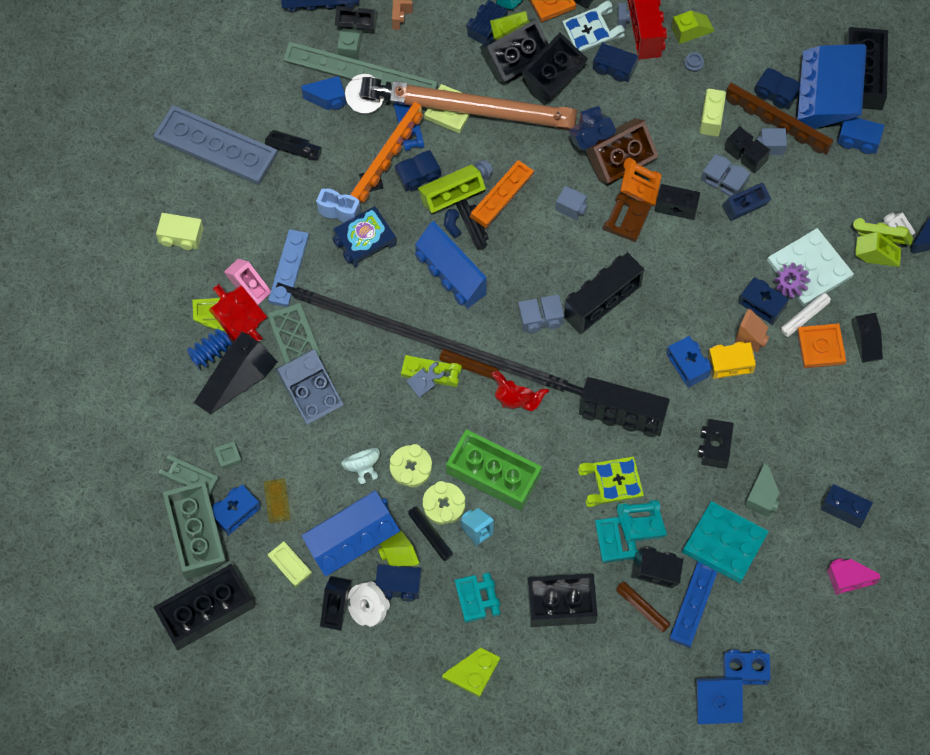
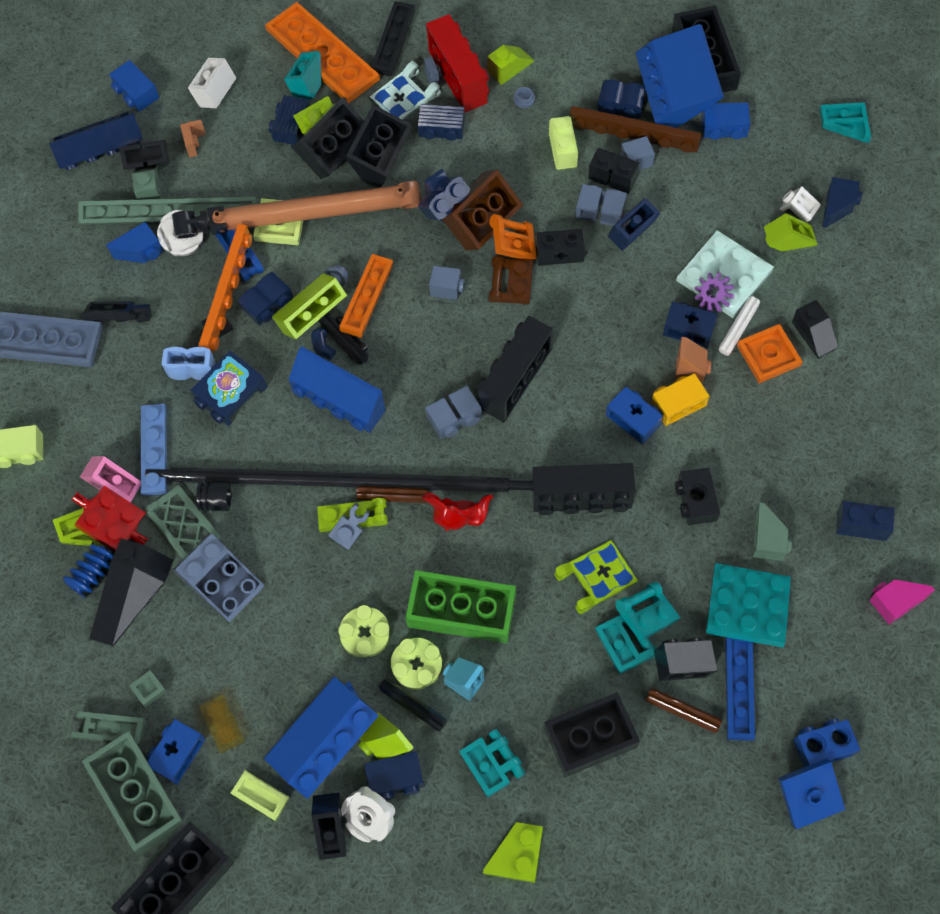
camera: 15 degrees left, 0 degrees up
(325, 321) = (214, 496): none -> black piece
(362, 463) = (308, 647): light aqua hair -> none
(895, 234) = (803, 211): lime plate -> none

